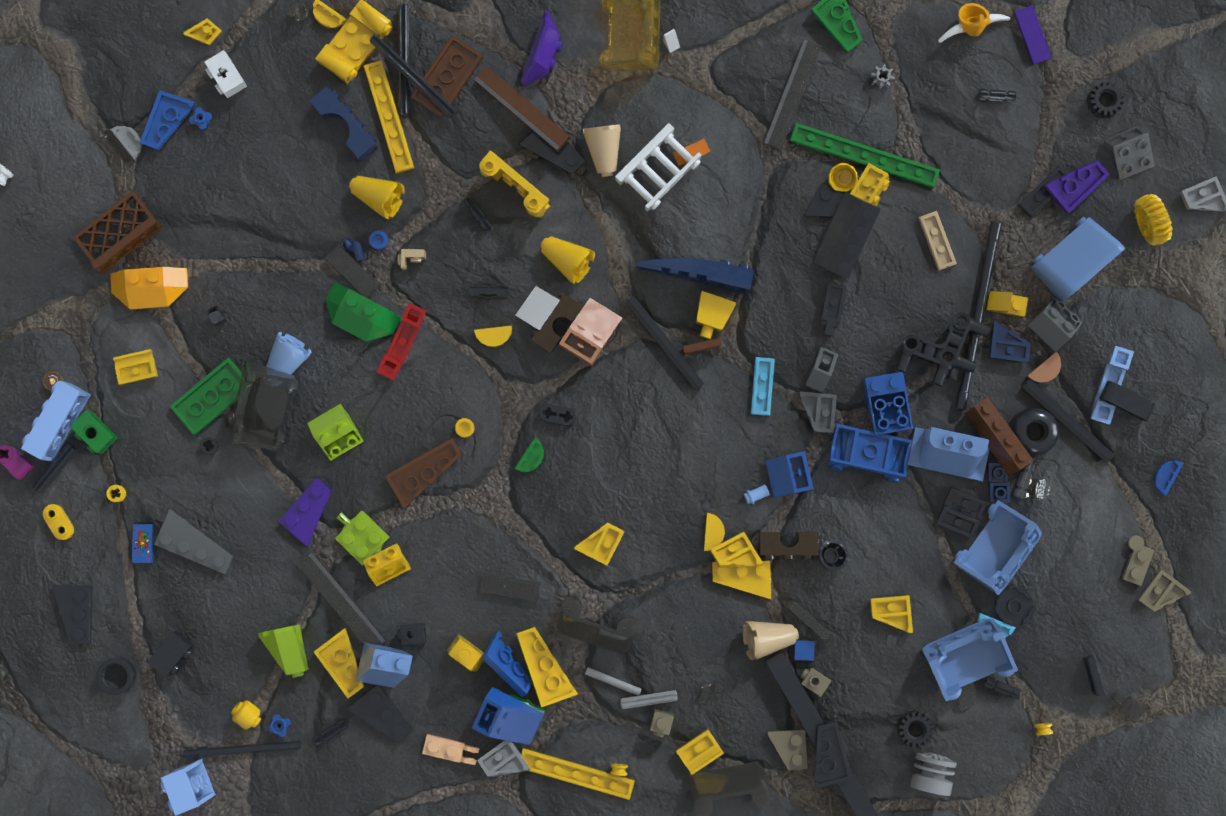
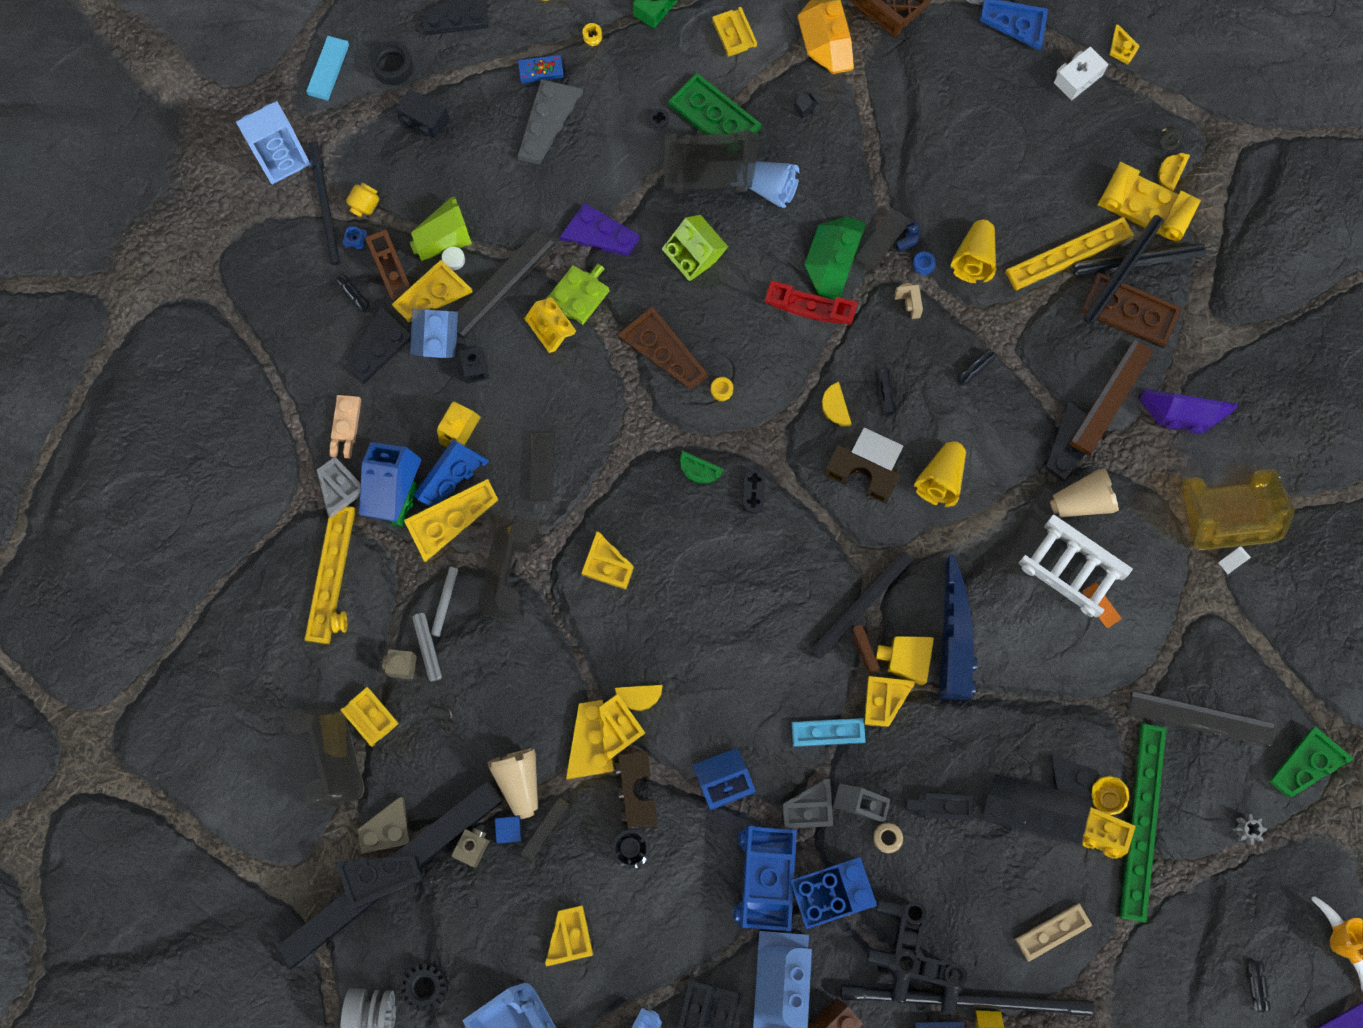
camera: 85 degrees right, 10 degrees down
(110, 734) = (327, 68): none -> medium azure tile
(206, 117) = (1025, 62): blue plate -> none
(309, 698) = (388, 263): none -> reddish brown slope
(311, 641) = (453, 258): none -> white tile
(329, 106) = (1034, 223): dark blue arch -> none
(534, 202) = (1004, 421): yellow piece -> none
(590, 331) = (859, 513): slope -> none
(743, 338) = (884, 699): none -> yellow wing
(756, 494) = (693, 742): light blue pin -> none
(844, 359) = (898, 838): none -> tan piece

